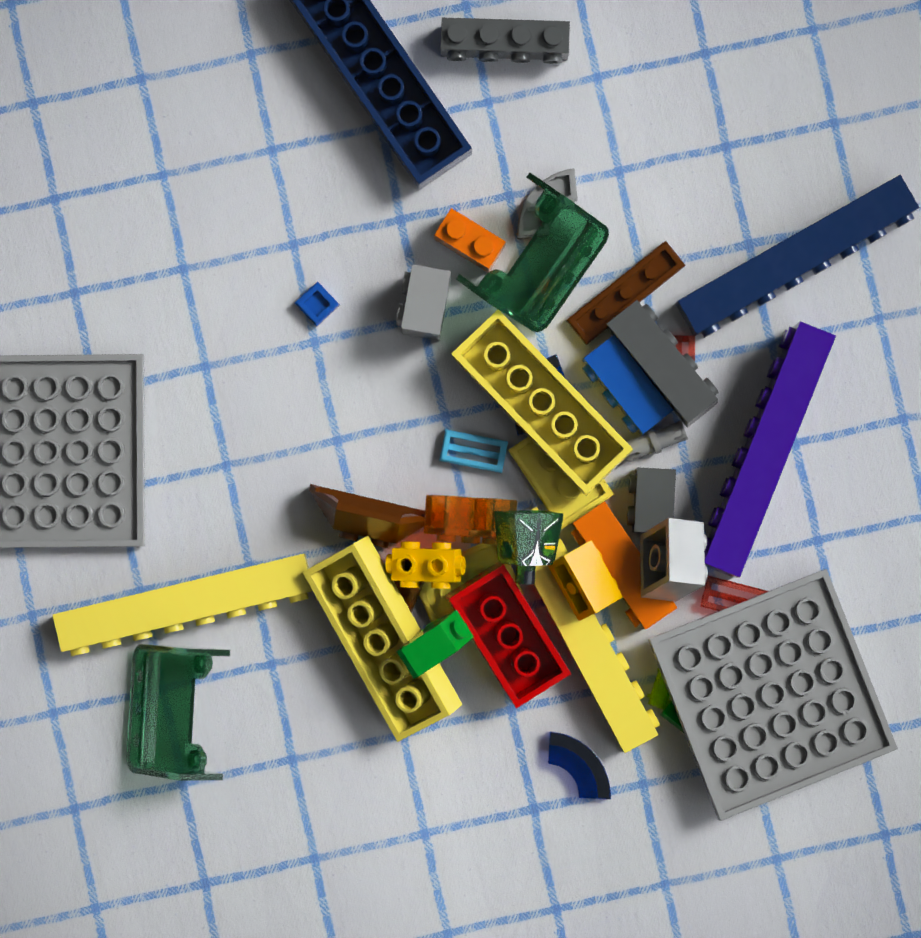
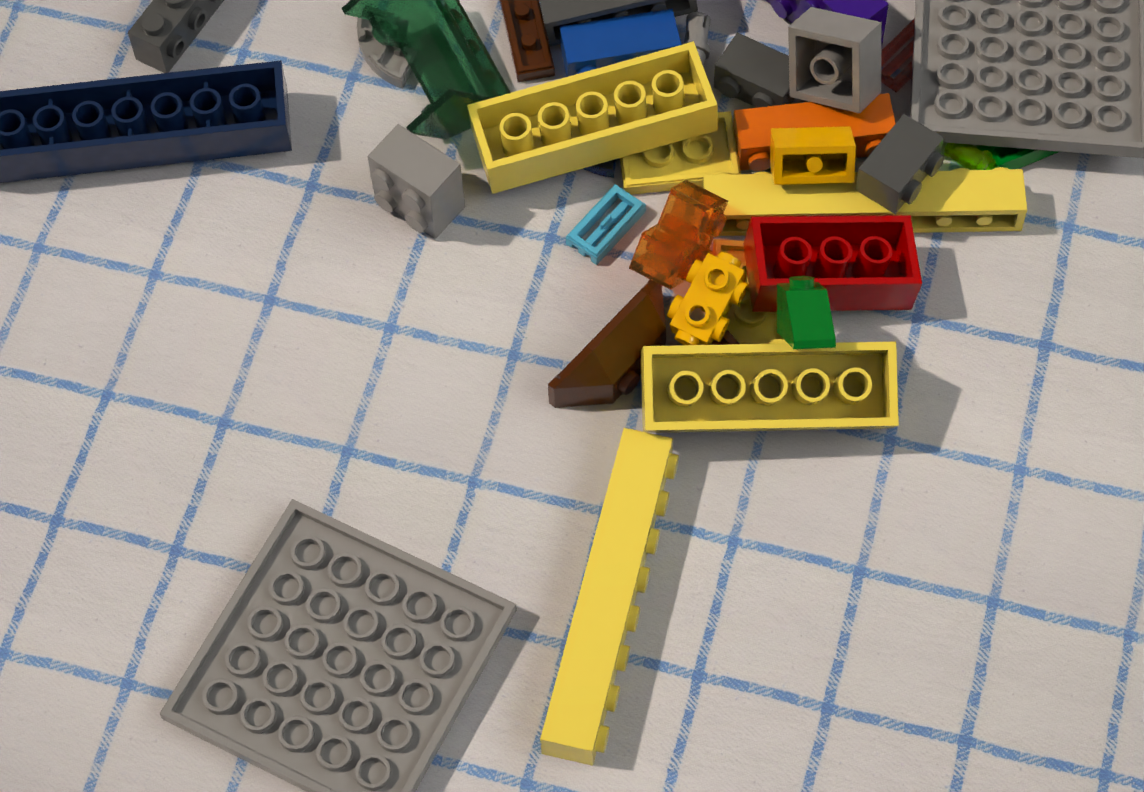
camera: 60 degrees left, 25 degrees down
(164, 709) = (721, 680): clear green windscreen -> none
(317, 304) = (350, 303): blue tile -> none
(469, 240) = (372, 116): orange brick -> none
(527, 540) = (737, 181): clear green torso -> none
(580, 764) = (1016, 273): tile -> none
(608, 648) = (900, 164): none -> dark grey brick

